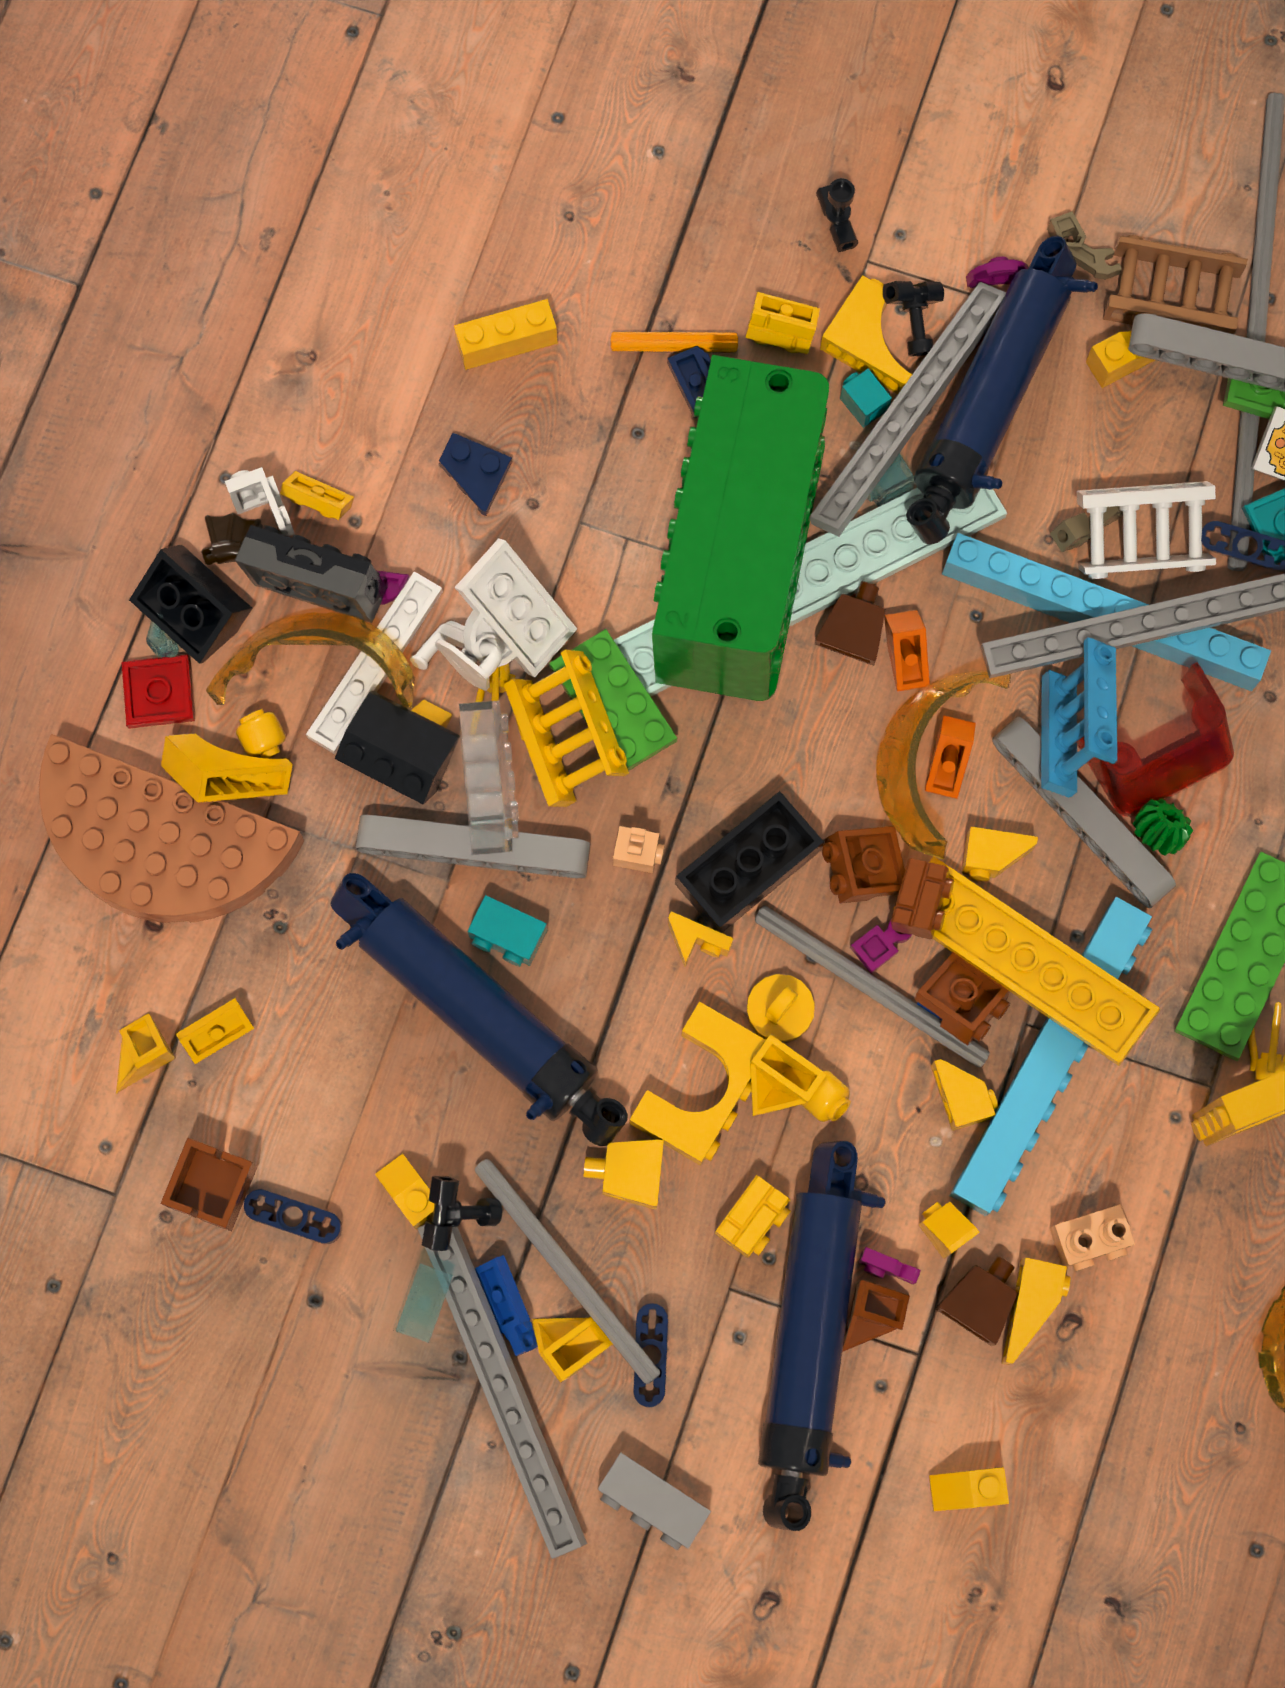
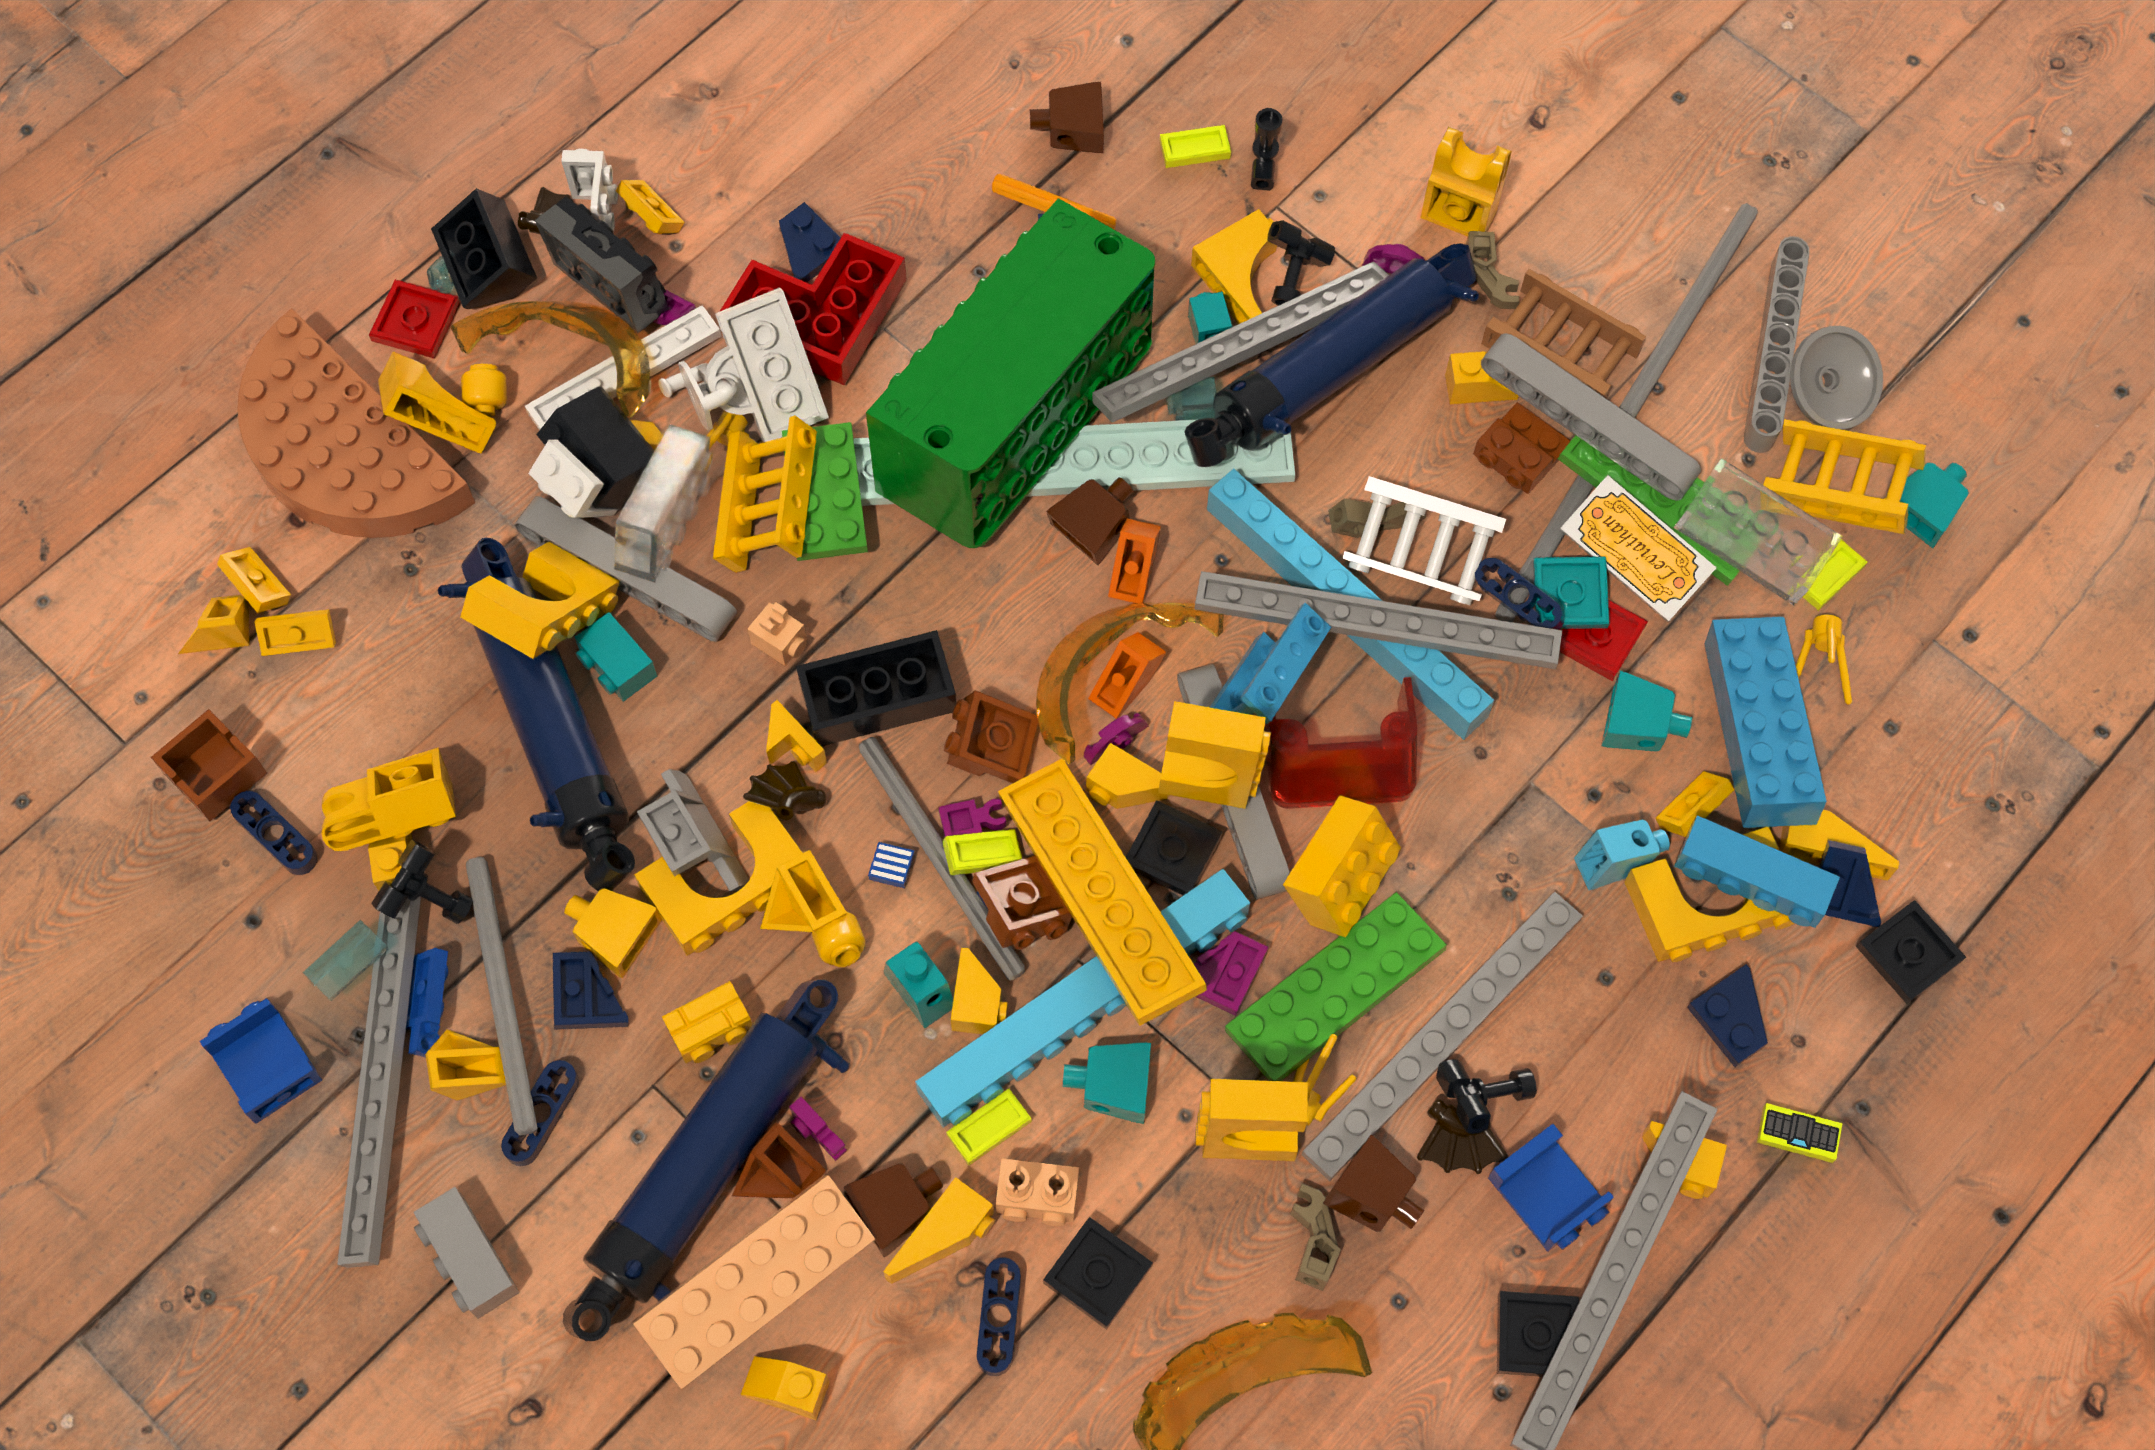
camera: 25 degrees right, 10 degrees down
(151, 998) = (253, 579): none -> yellow plate
(385, 1149) = (389, 802): none -> yellow brick
(392, 793) = (568, 481): none -> white bracket
(392, 1417) = (261, 1060): none -> blue panel
(436, 942) = (535, 625): none -> yellow arch
(506, 334) = (897, 136): yellow brick -> none
(538, 527) = (840, 308): none -> red brick
(633, 1239) = (583, 995): none -> dark blue wing
(653, 250) = (1073, 118): none -> reddish brown torso
(654, 1062) = (688, 832): none -> light grey plate
(714, 988) = (785, 791): none -> dark brown arm
(770, 232) = (1195, 146): none -> neon yellow tile
(780, 1007) = (841, 839): yellow tile -> none
(782, 323) = (1161, 223): yellow brick -> none
(833, 1011) = (891, 865): none -> blue tile
(904, 1417) = (753, 1281): none -> light nougat brick
(906, 967) = (980, 851): none -> neon yellow tile
(910, 1104) = (917, 981): none -> teal torso
(921, 899) = (1025, 788): dark orange brick -> none
(947, 1228) = (892, 1118): yellow slope -> none
(967, 816) = (1118, 732): none -> magenta plate
(1024, 1199) = (988, 1126): none -> neon yellow tile
(1035, 182) = (1464, 185): none -> yellow brick
(1061, 894) = (1173, 848): none -> black plate
(1081, 810) = (1213, 755): none -> yellow arch
(1109, 1116) = (1113, 1080): none -> teal torso
(1123, 1358) = (1006, 1346): none -> dark blue beam
(1159, 977) = (1230, 971): none -> magenta wing
(1162, 826) = (1299, 820): green gear -> none
(1172, 1281) = (1097, 1273): none -> black plate
(1183, 405) = (1520, 448): none -> dark orange plate
(1214, 852) = (1342, 866): none -> yellow brick

